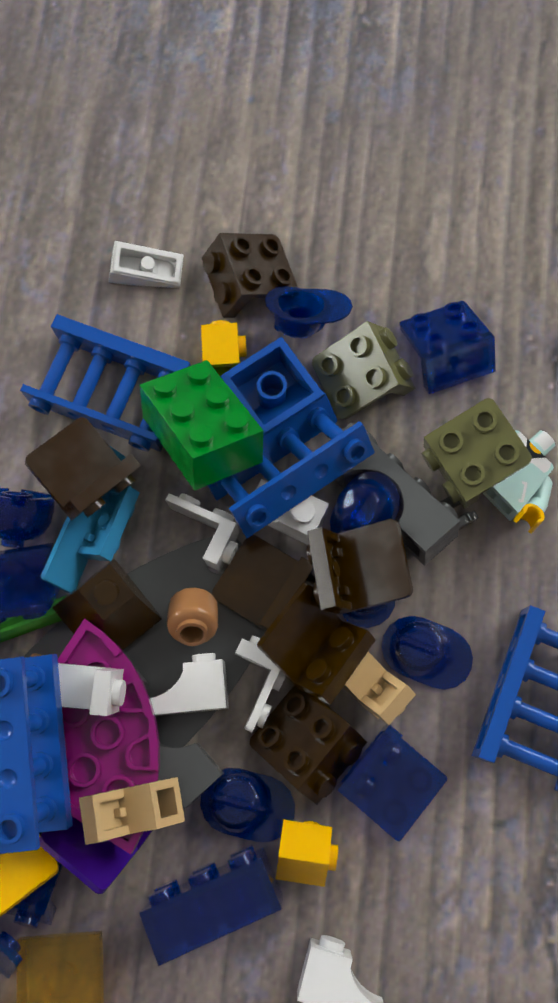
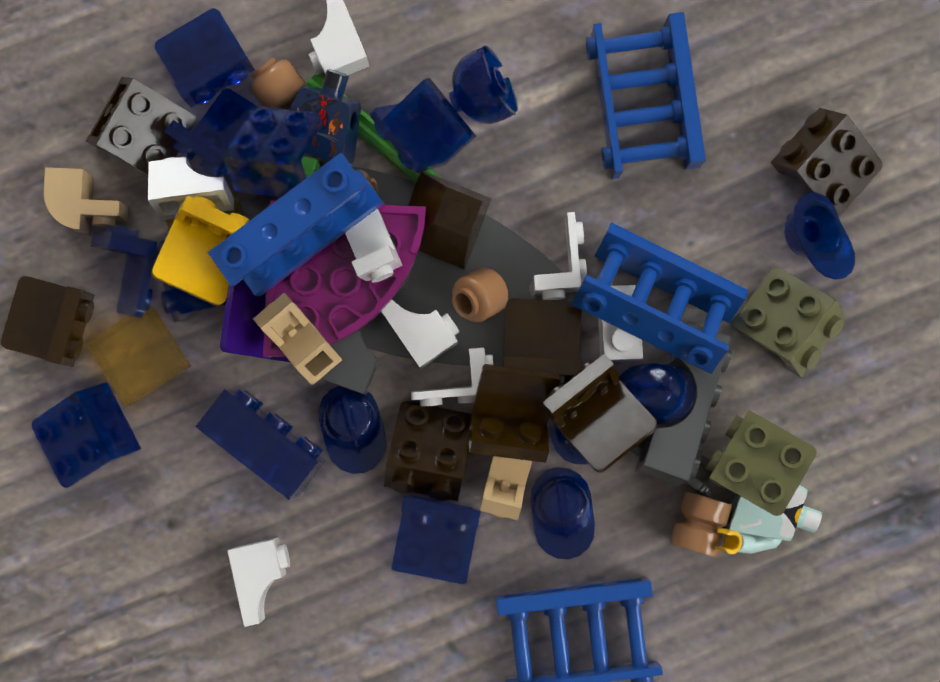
camera: 60 degrees right, 10 degrees up
(80, 468) = (551, 125): dark brown bracket -> none
(89, 538) = (516, 161): dark azure bracket -> none
(145, 266) = (780, 60): white slope -> none
(201, 424) = (651, 206): green brick -> none
(222, 345) = (737, 180): yellow brick -> none
(273, 385) = (722, 247): blue slope -> none
(306, 853) = (341, 497): yellow brick -> none
(451, 345) = (861, 387): clear blue bracket -> none
(500, 535) = (700, 524): none -> medium nougat wheel

